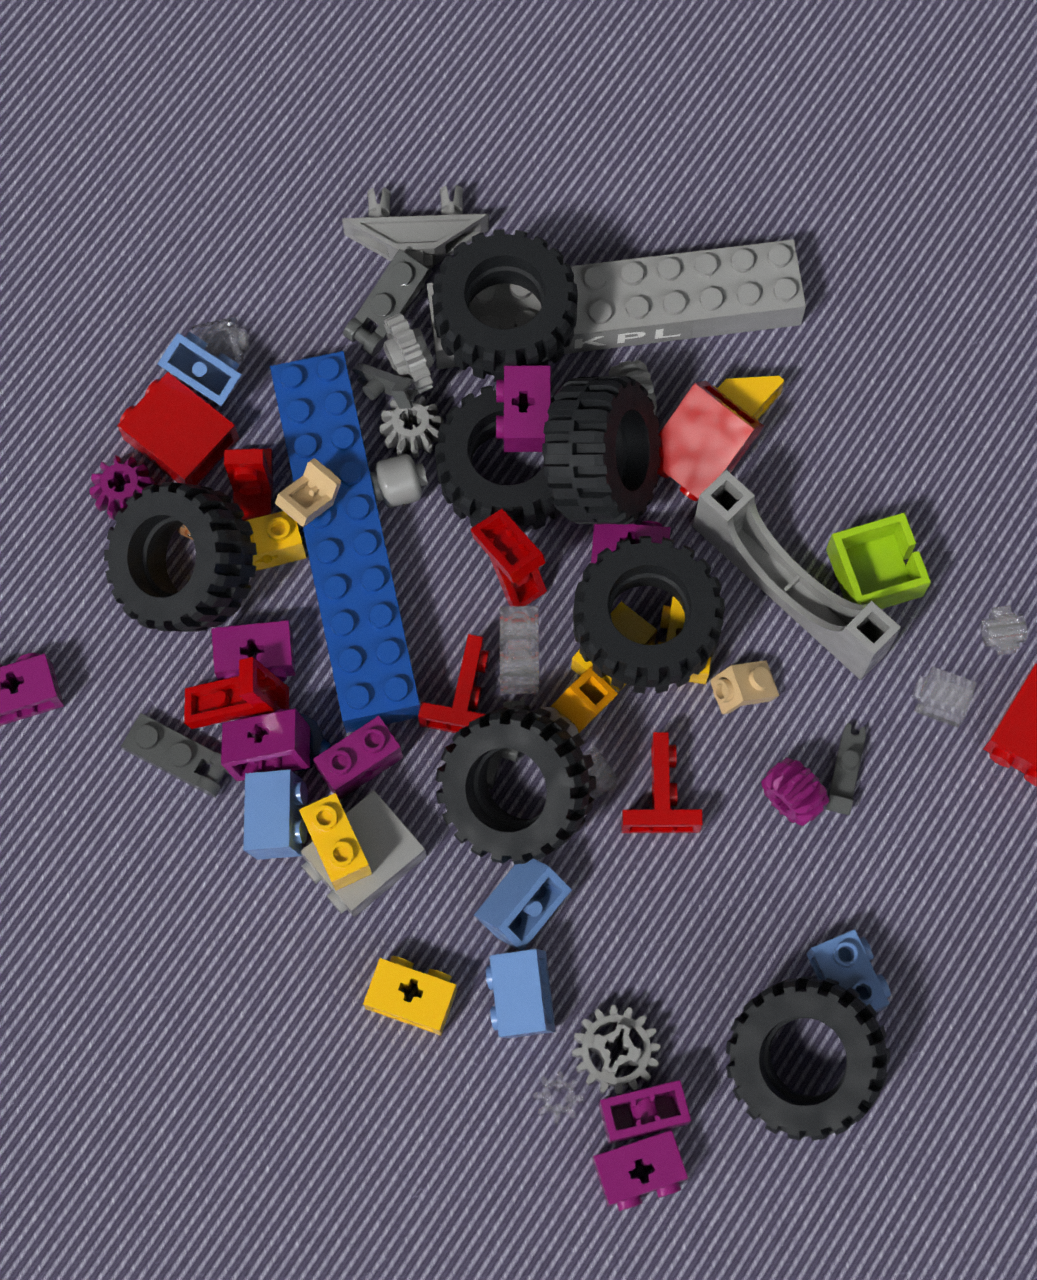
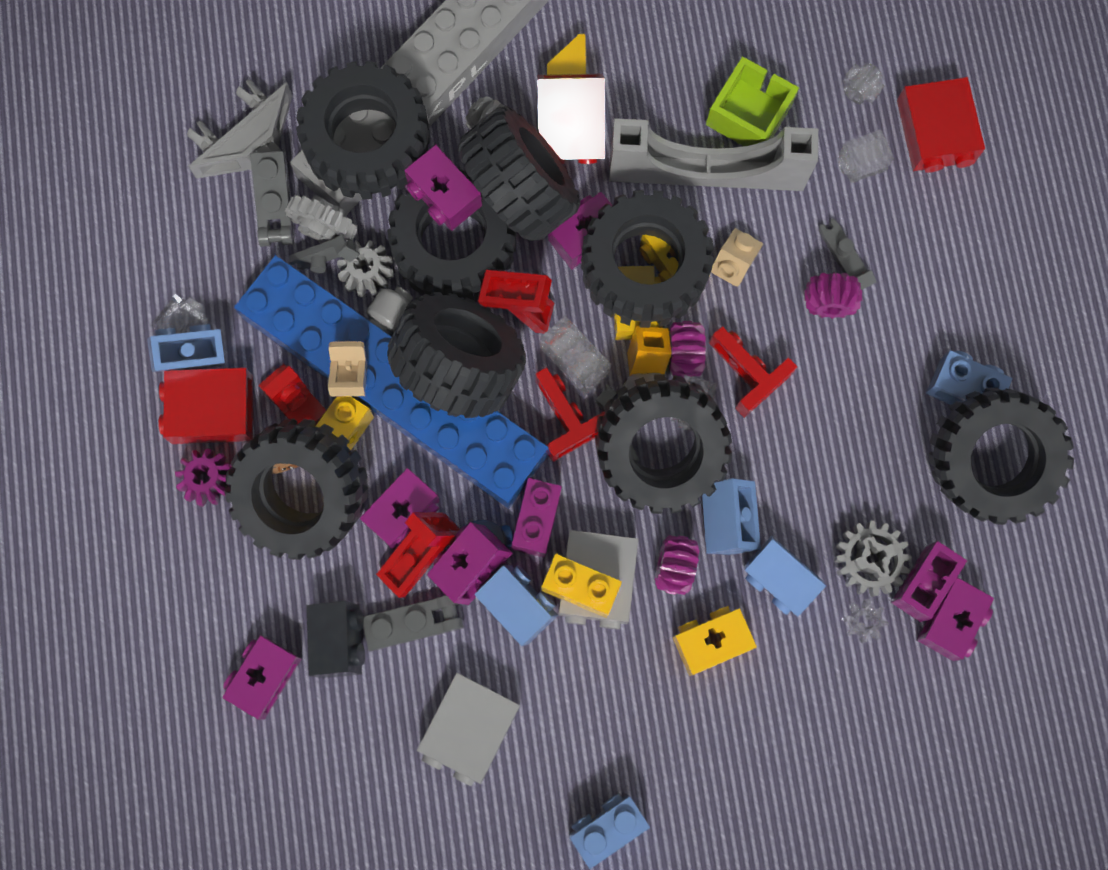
camera: 45 degrees left, 5 degrees up
(101, 710) = (335, 639): none -> black brick
(139, 882) = (467, 730): none -> light grey brick
(174, 1070) = (609, 830): none -> medium blue brick
(377, 564) = (456, 355): none -> black tyre
(438, 901) = (677, 564): none -> magenta gear
(619, 726) = (687, 348): none -> magenta gear

